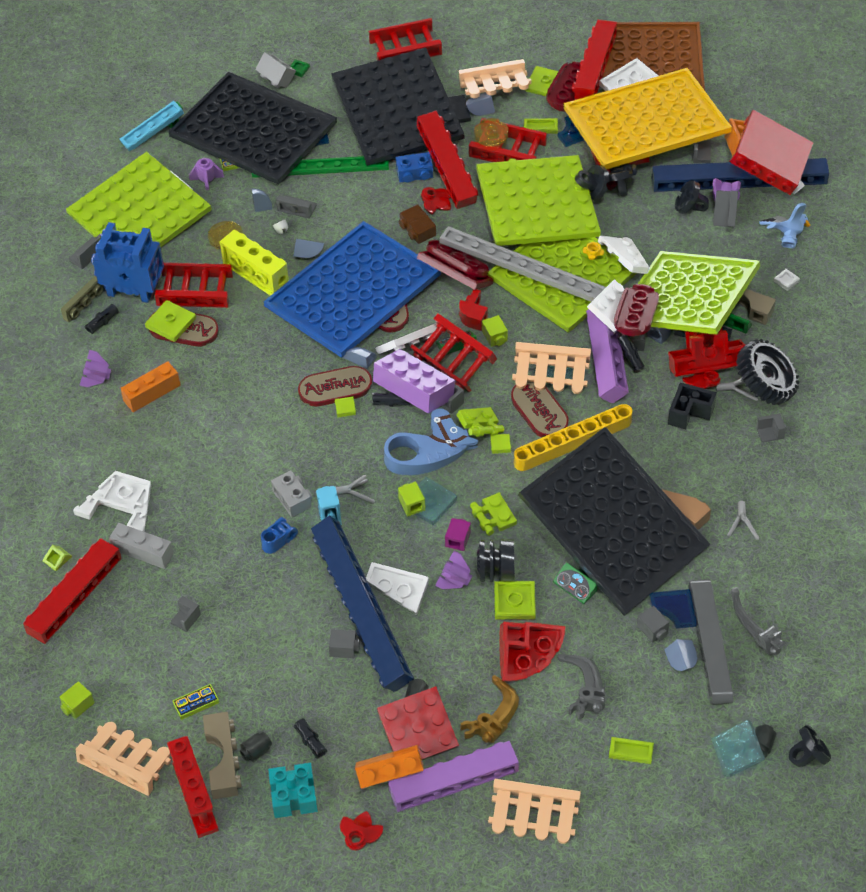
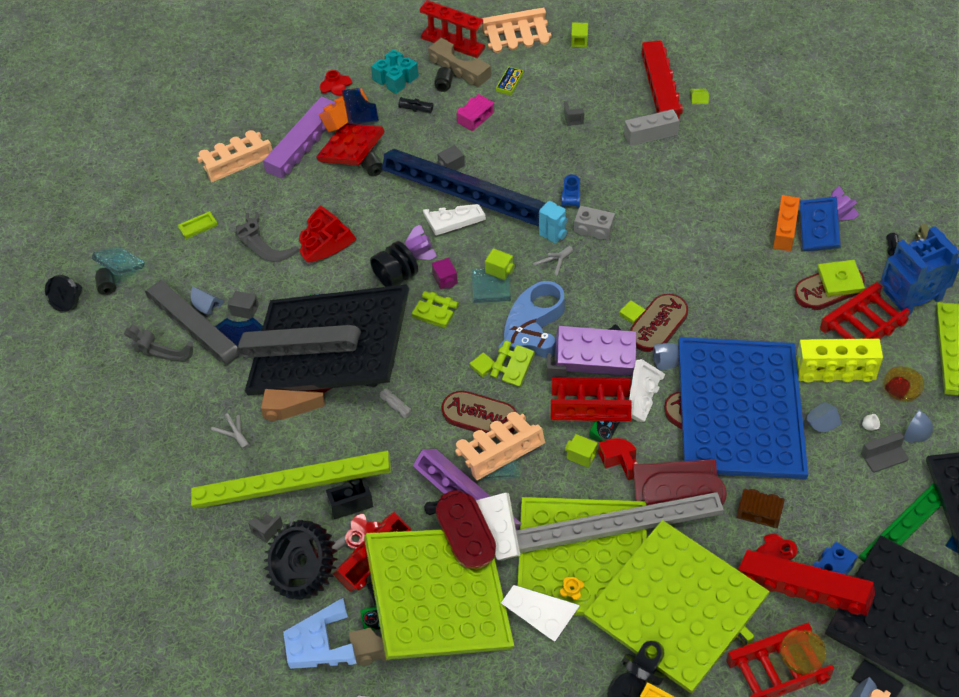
camera: 140 degrees right, 0 degrees up
(121, 493) = (705, 152): white wing -> none
(128, 365) = (820, 224): none -> blue tile
(237, 225) = (898, 387): none -> clear red tile
(268, 682) = (475, 112): none -> dark pink brick
(376, 753) = (358, 108): none -> clear blue tile
(492, 726) = (303, 177): pearl gold piece -> none
(514, 600) = (357, 260): lime plate -> none
(571, 437) = (440, 379): yellow beam -> none
(642, 529) = (299, 341): none -> dark grey beam
(732, 436) = (291, 479): none -> lime plate
(800, 326) = (309, 643): none -> light blue wing

